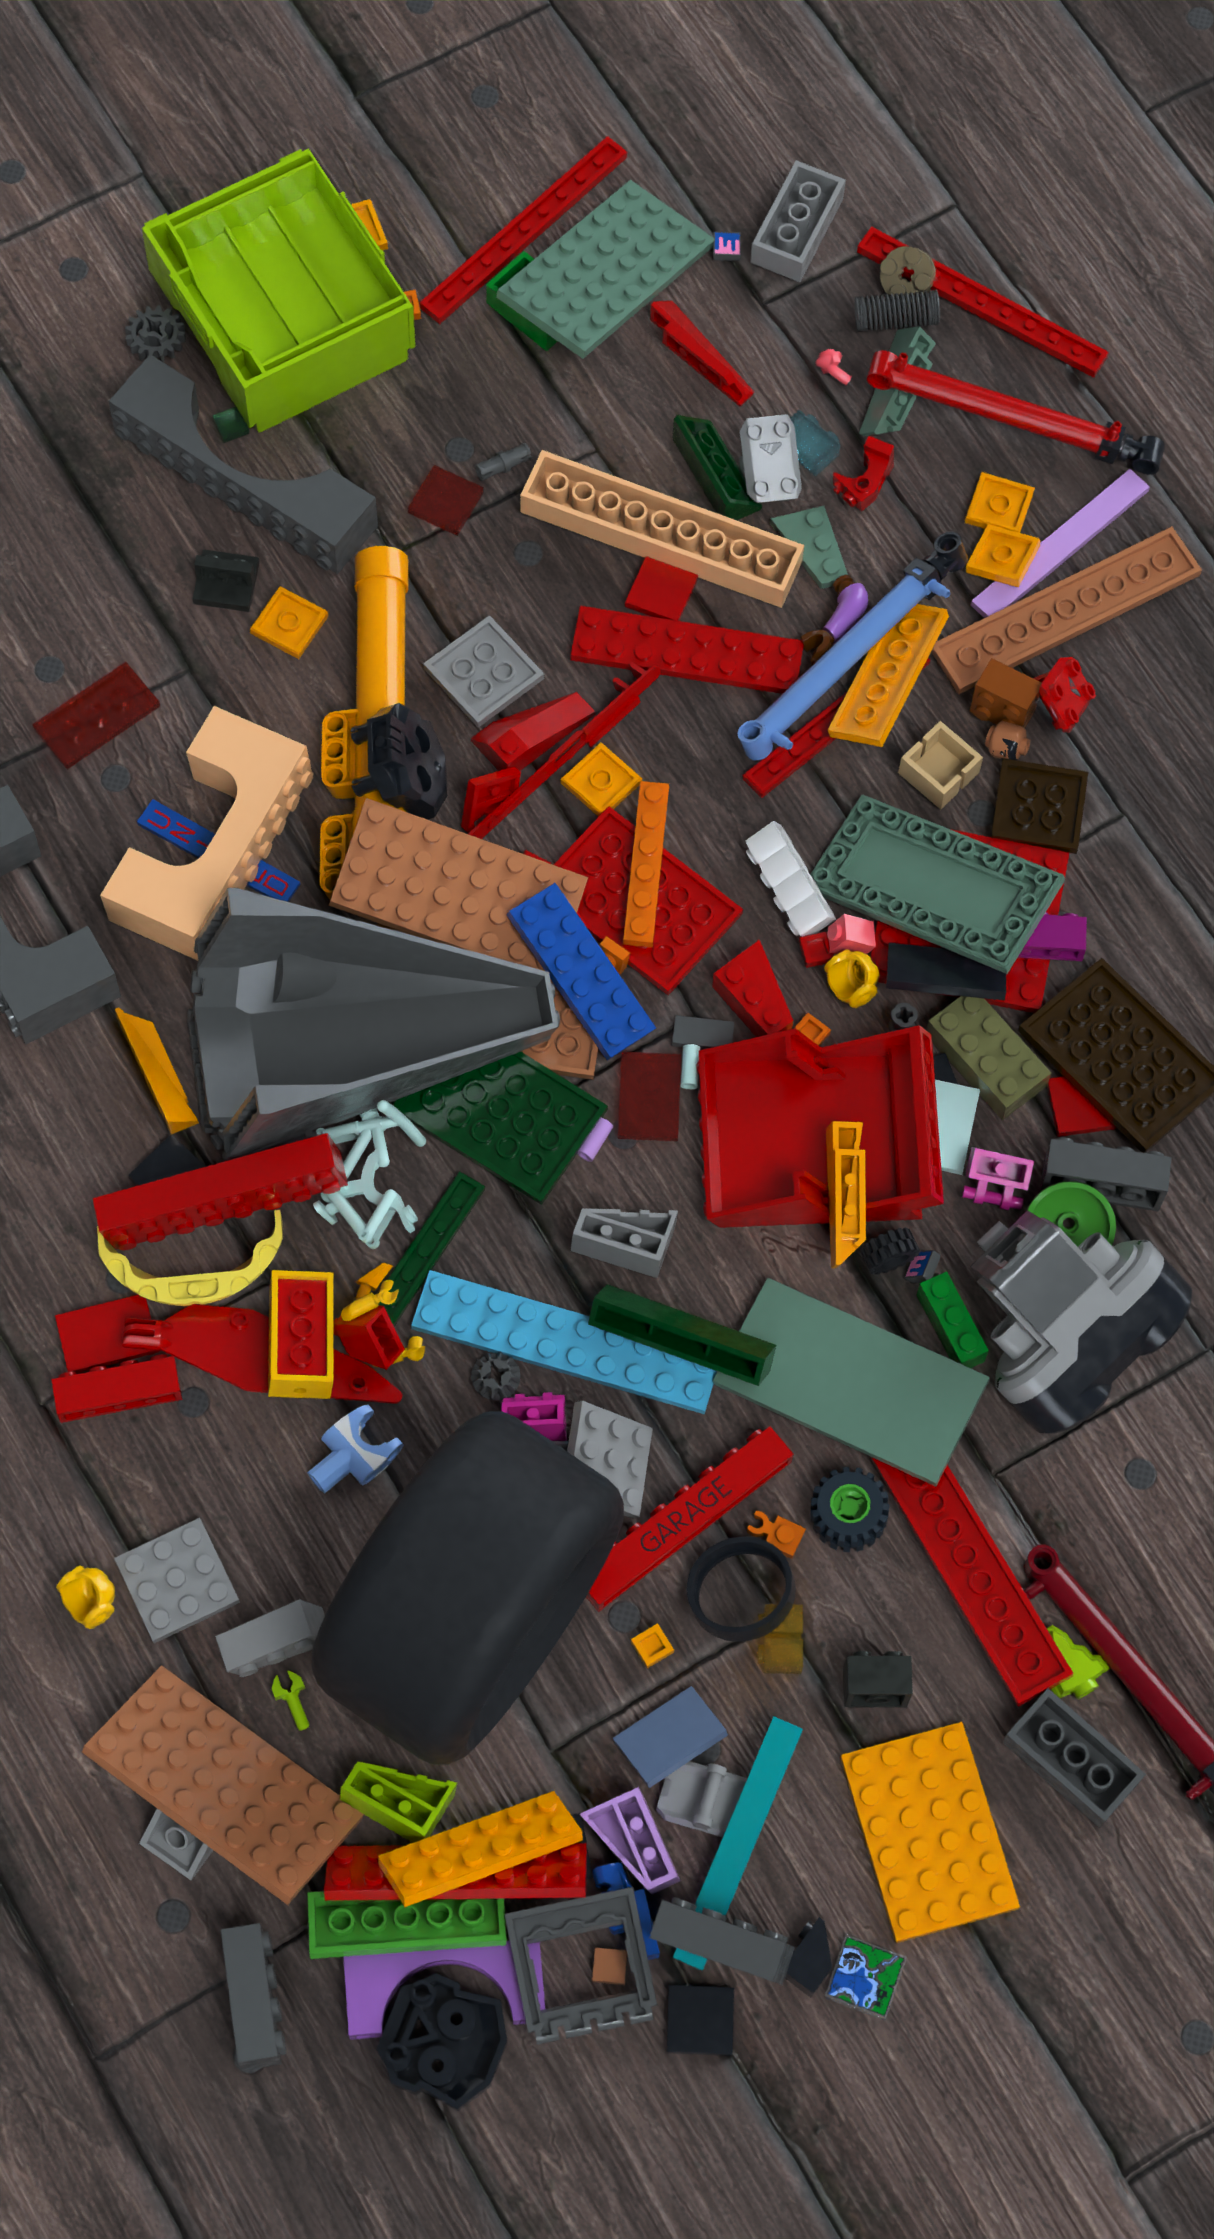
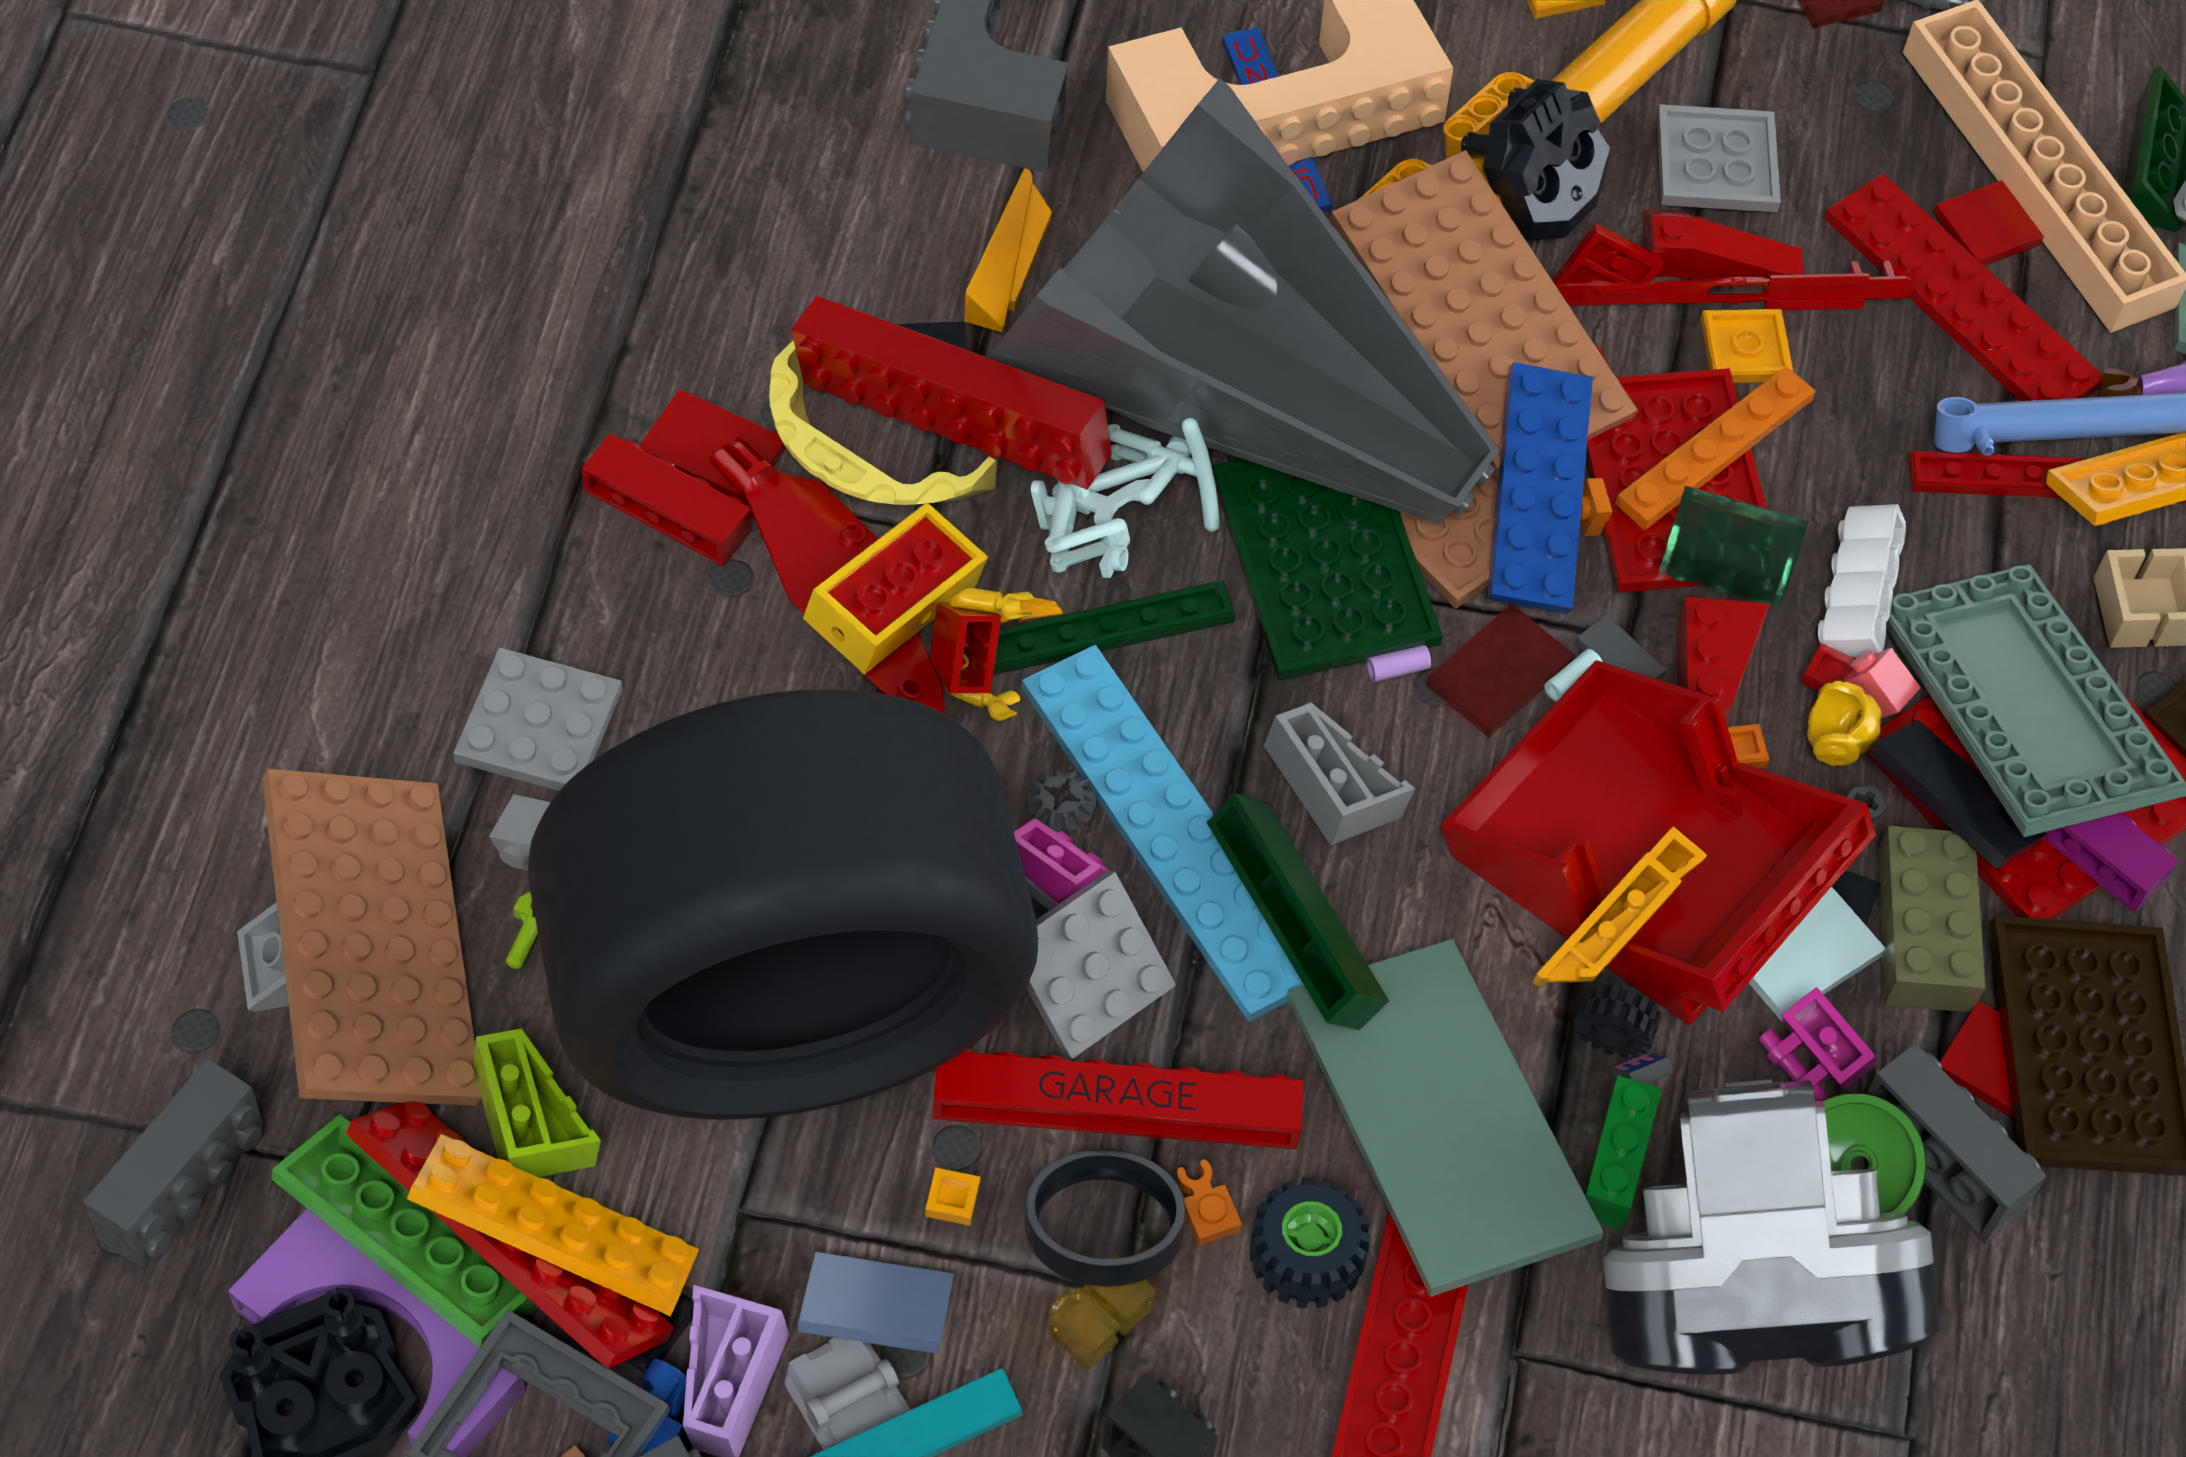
camera: 40 degrees right, 10 degrees down
(87, 1595) = (434, 655): yellow hair -> none
(714, 924) = (1733, 546): none -> clear green slope

